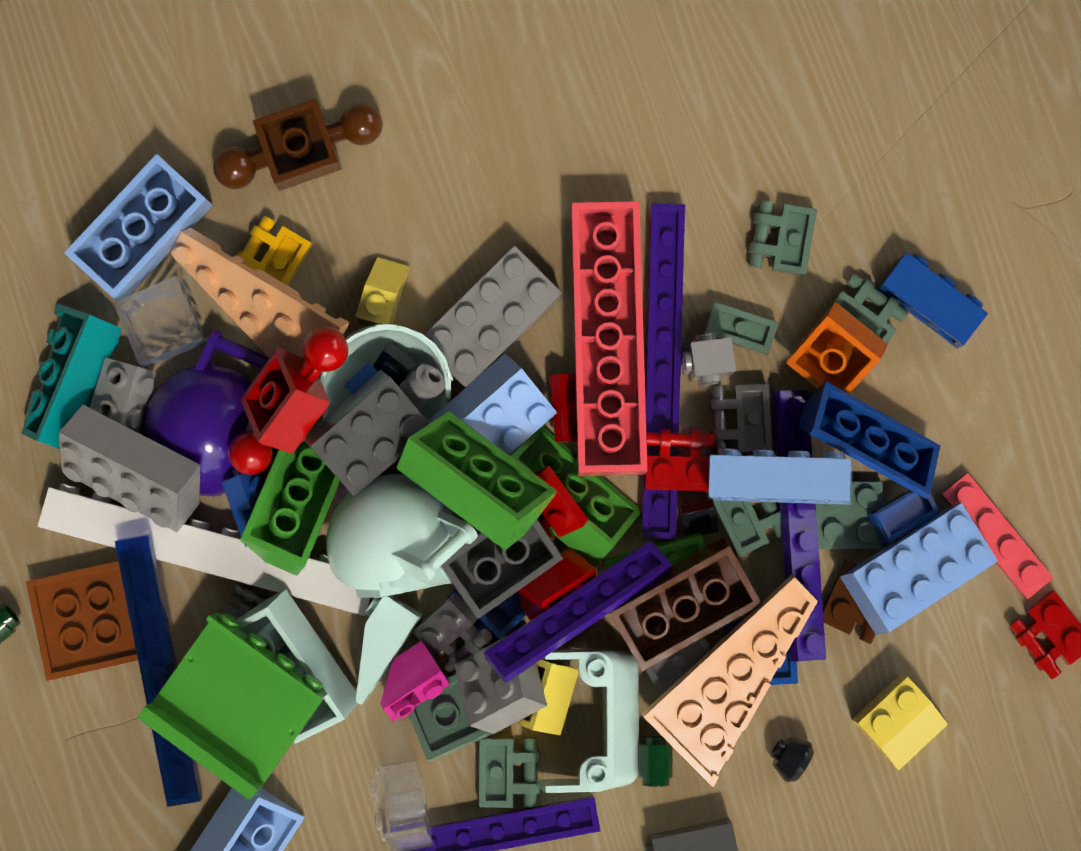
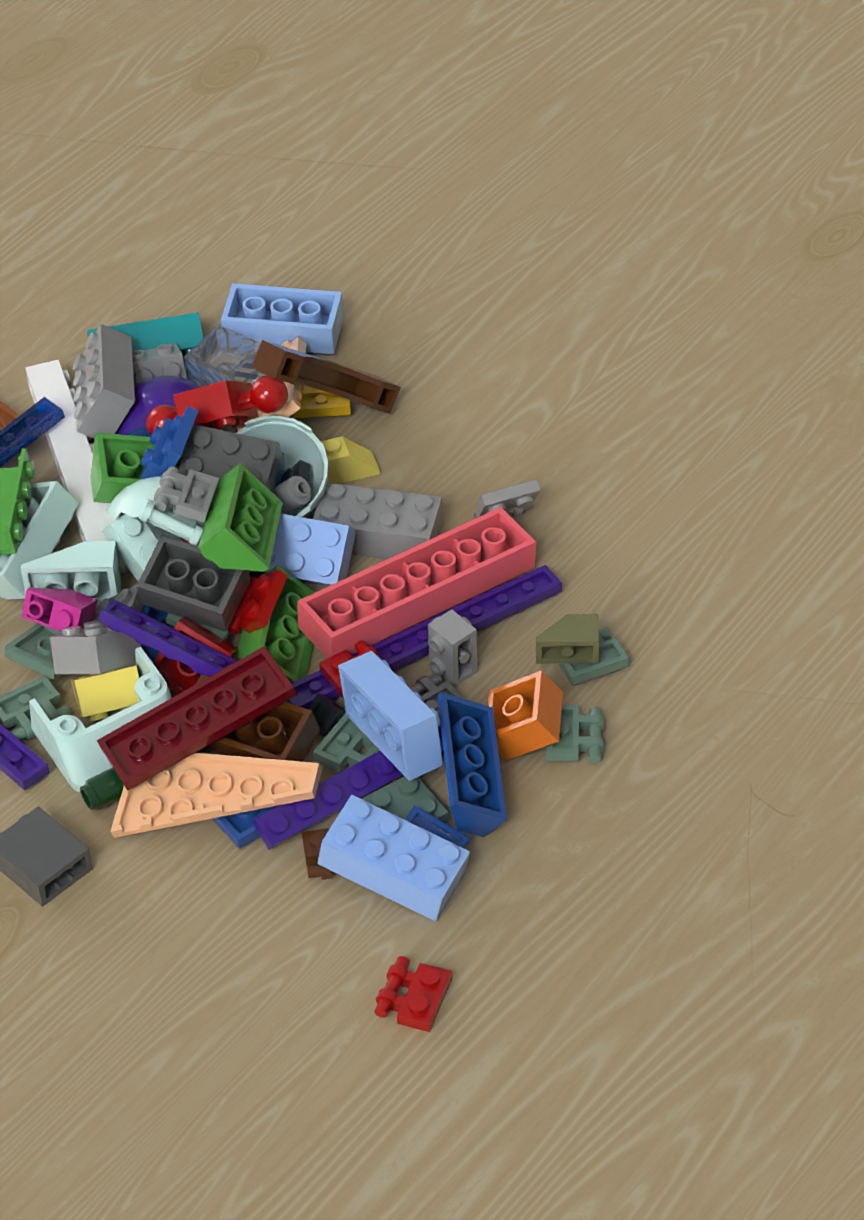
camera: 60 degrees right, 40 degrees down
(297, 145) = (415, 364): reddish brown brick -> none
(298, 308) = (325, 375): none -> reddish brown arch
(314, 481) = (167, 444): none -> blue plate
(422, 505) = (195, 495): none -> light grey plate
(555, 186) = (511, 499): none -> light grey plate
(666, 652) = (196, 718): none -> dark red plate
(745, 328) = (495, 663): sand green plate -> none
(776, 248) = (570, 640): none -> olive slope
(792, 758) = (172, 871): black cone -> none
(900, 721) = (257, 924): light yellow slope -> none
(933, 299) = (623, 765): blue brick -> none
(1011, 551) = (466, 913): coral plate -> none

